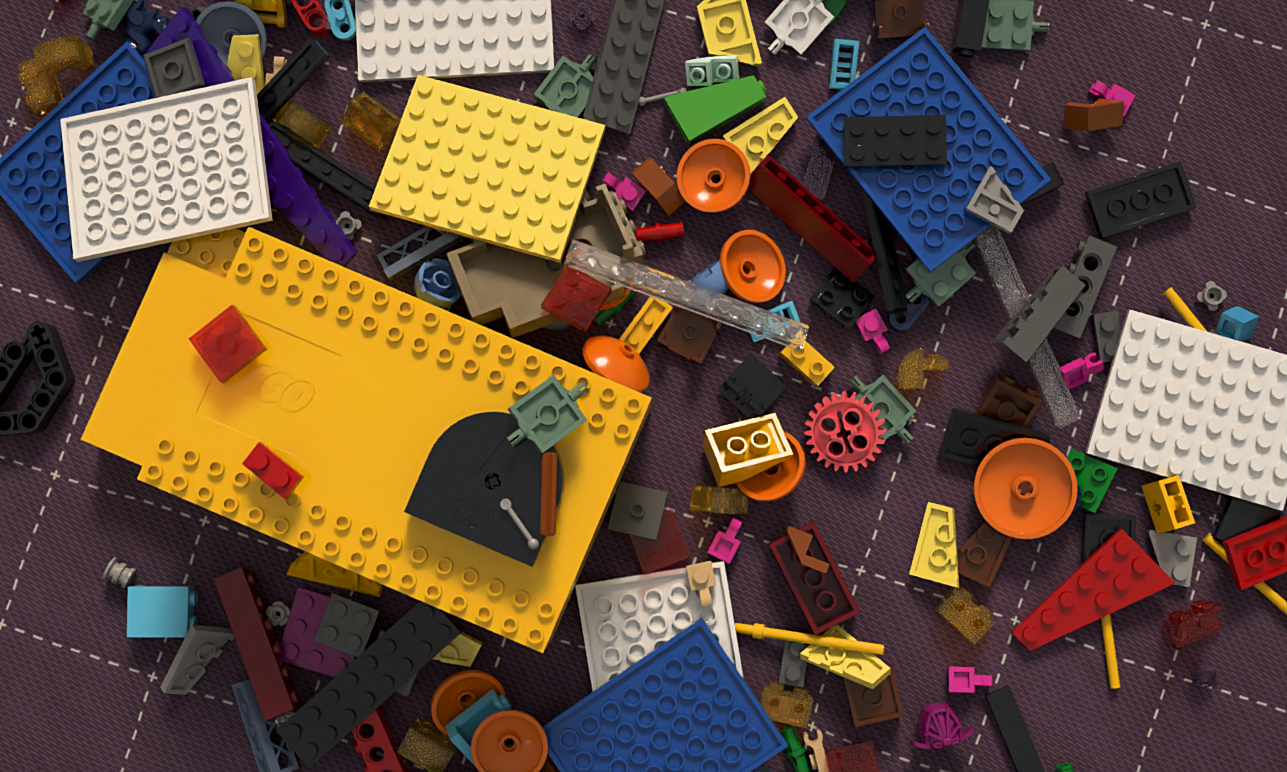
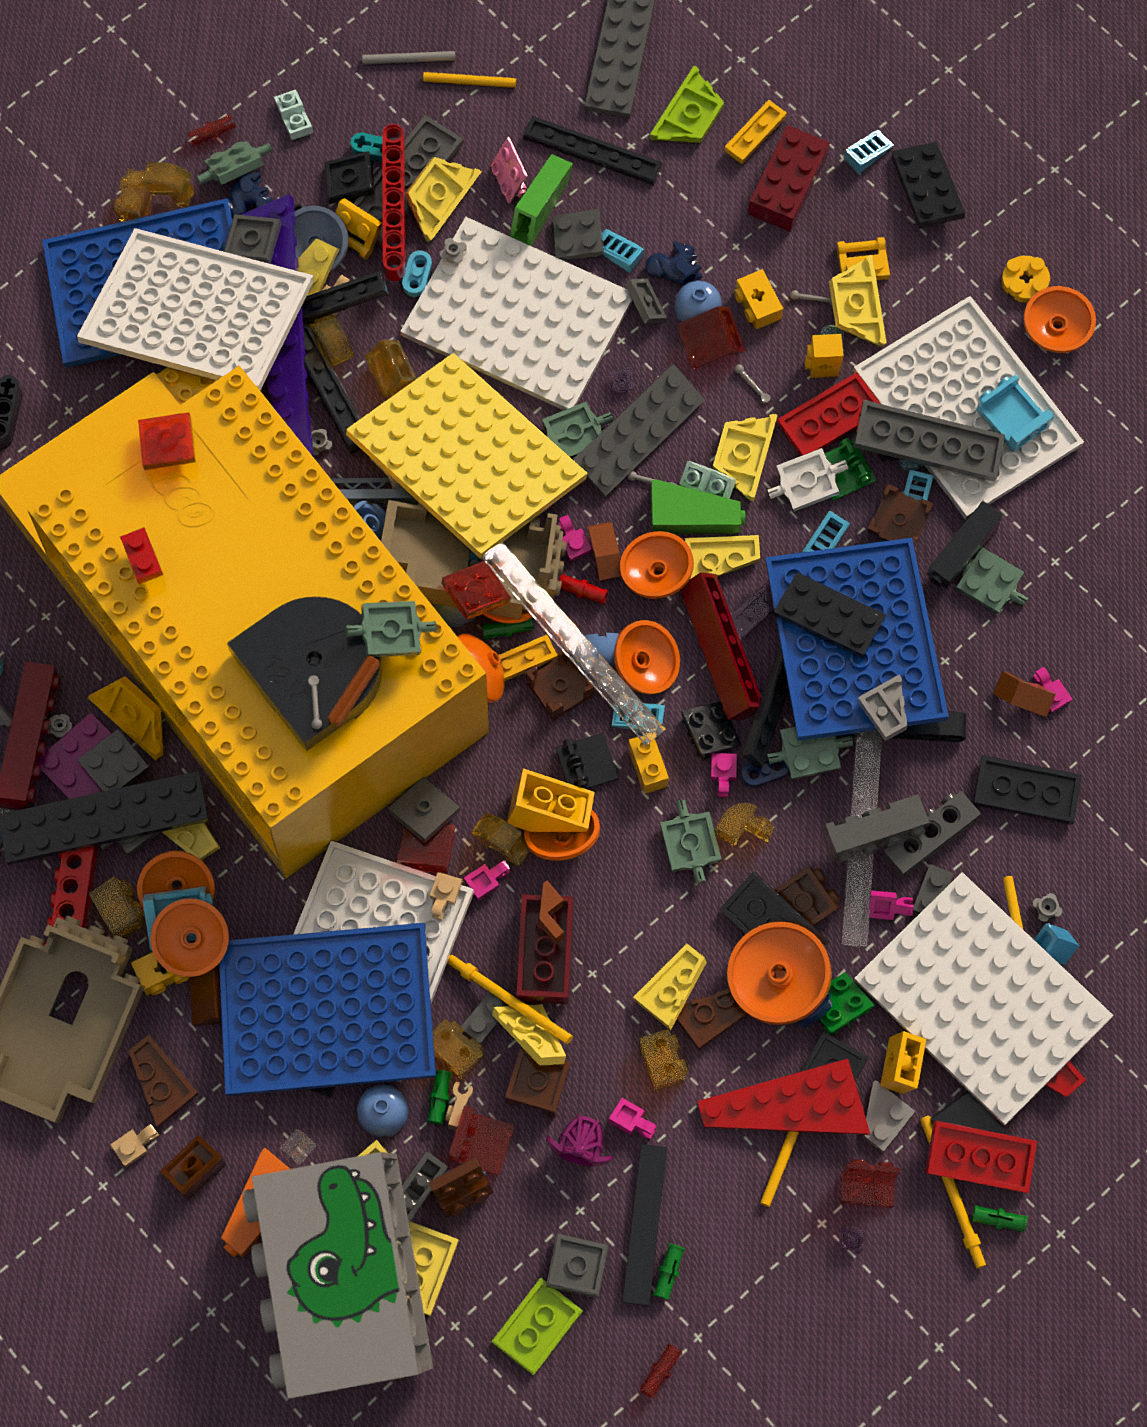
camera: 25 degrees right, 15 degrees down
(823, 436) = (669, 842): coral gear -> none

